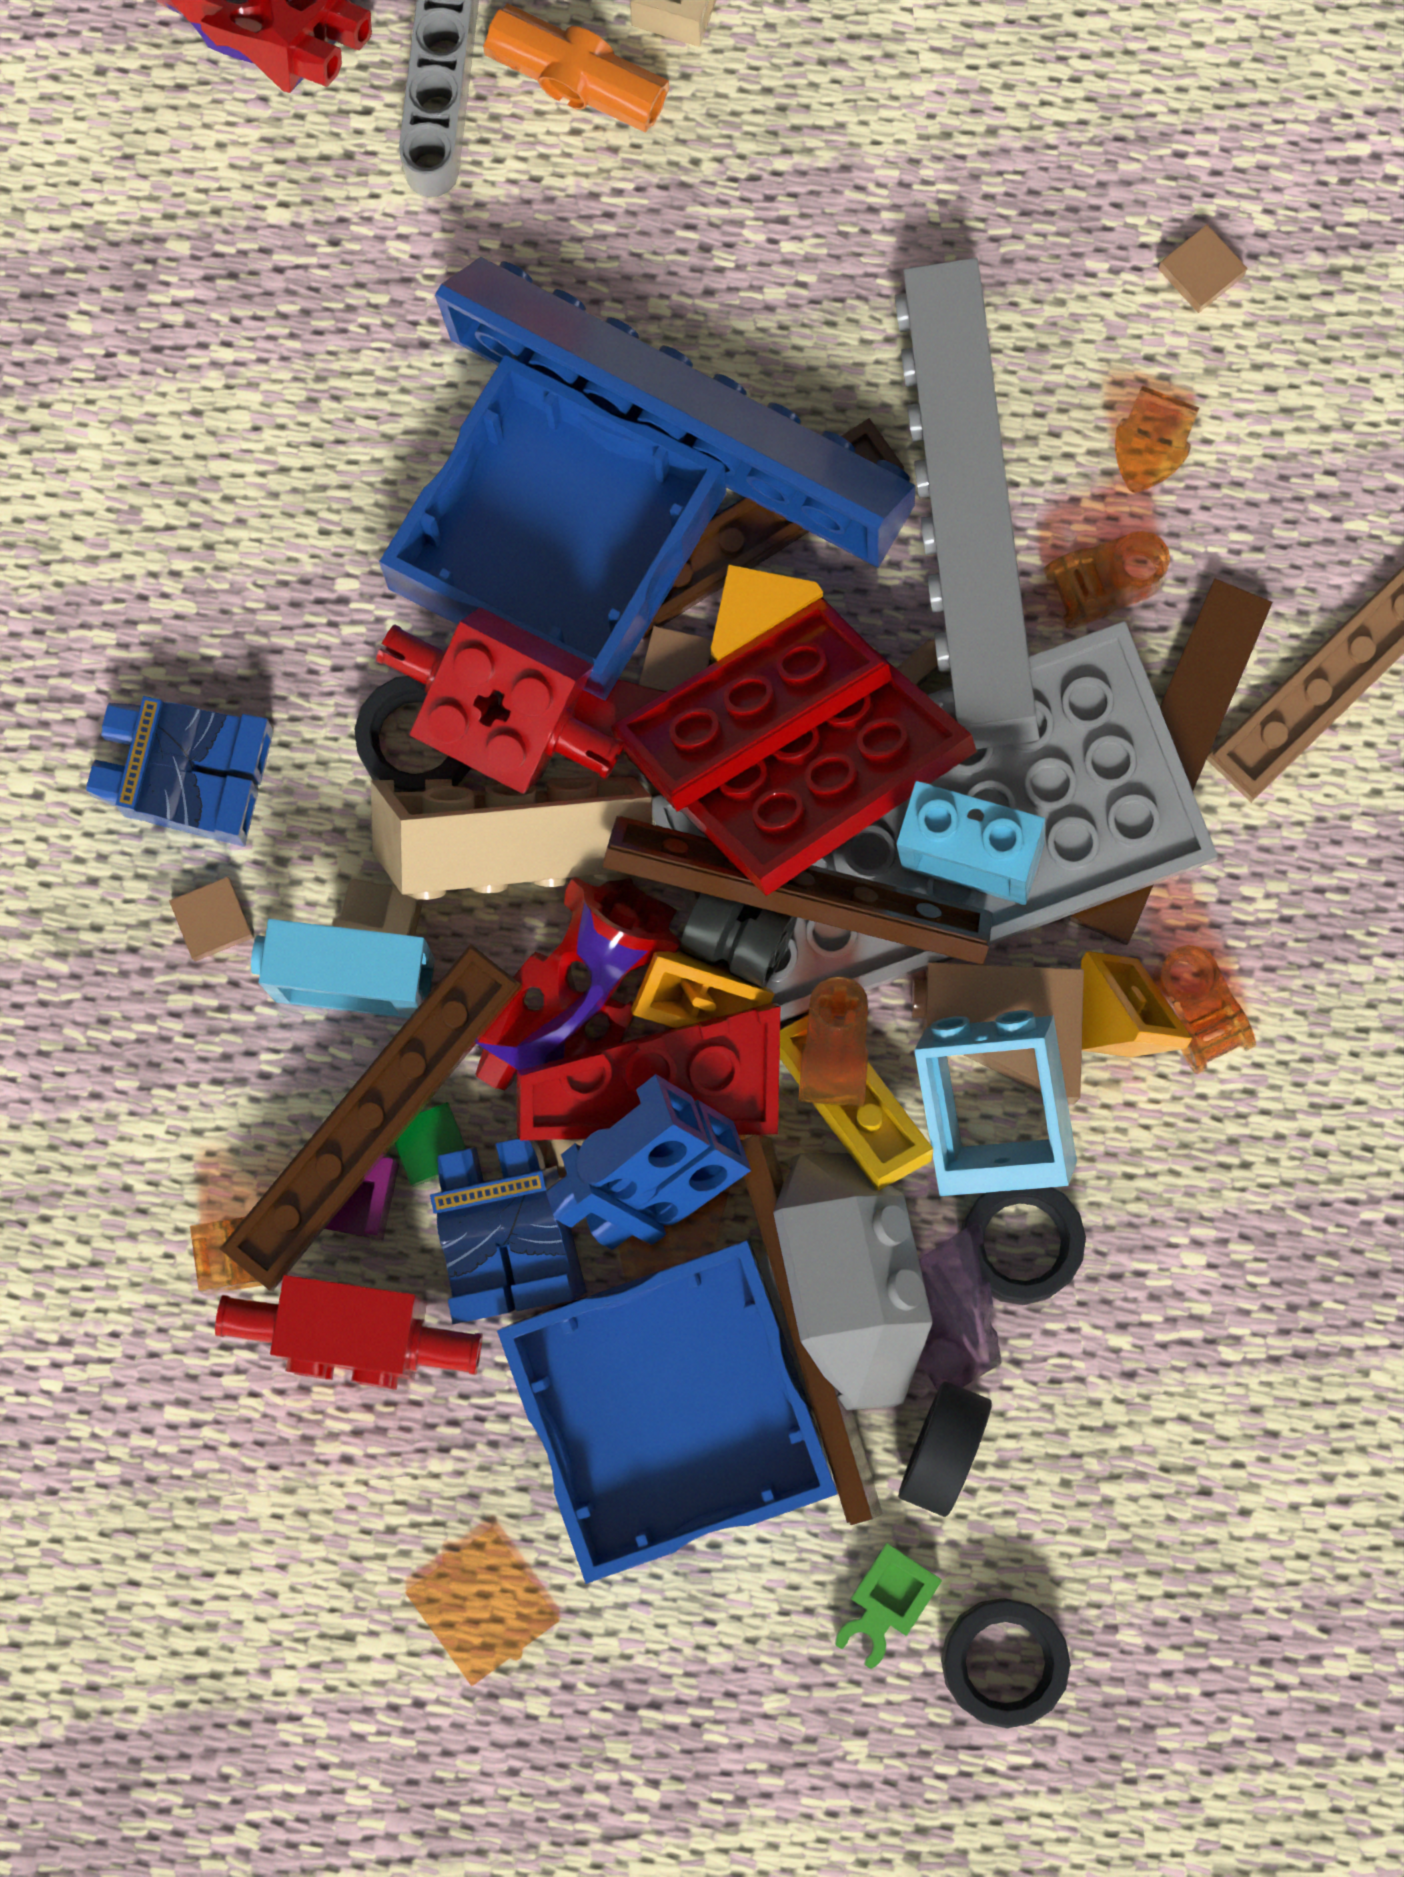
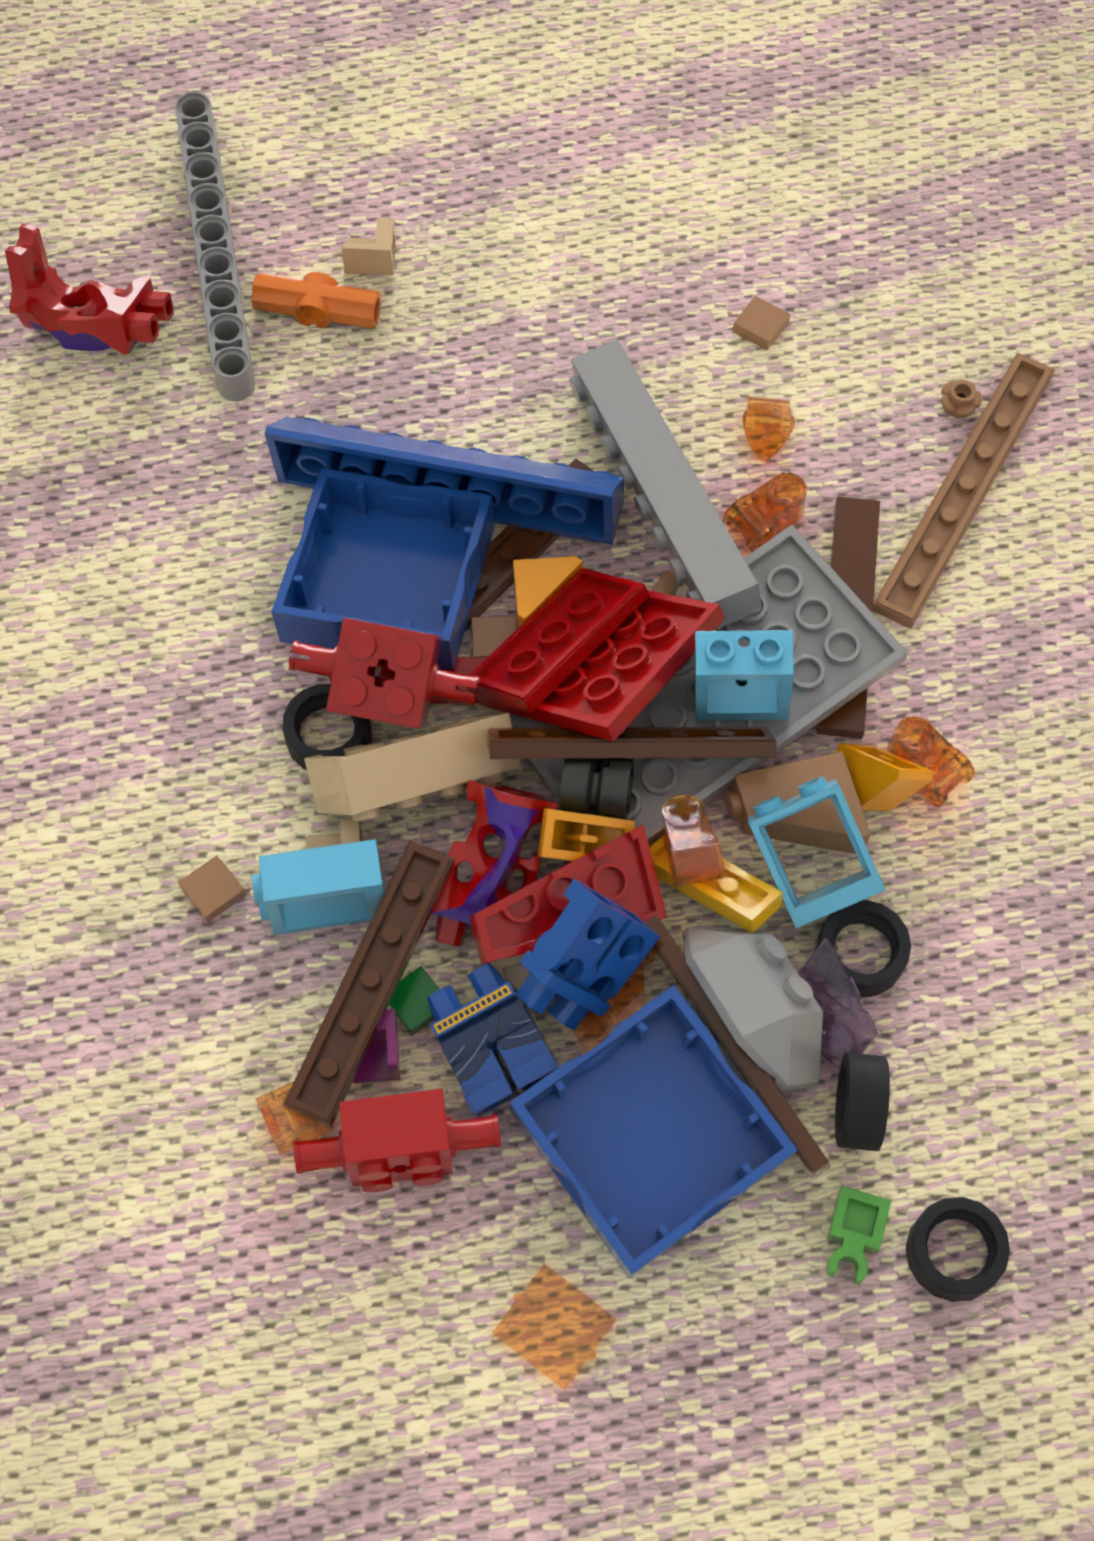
camera: 20 degrees left, 15 degrees down
(184, 767) = (166, 790): hips -> none

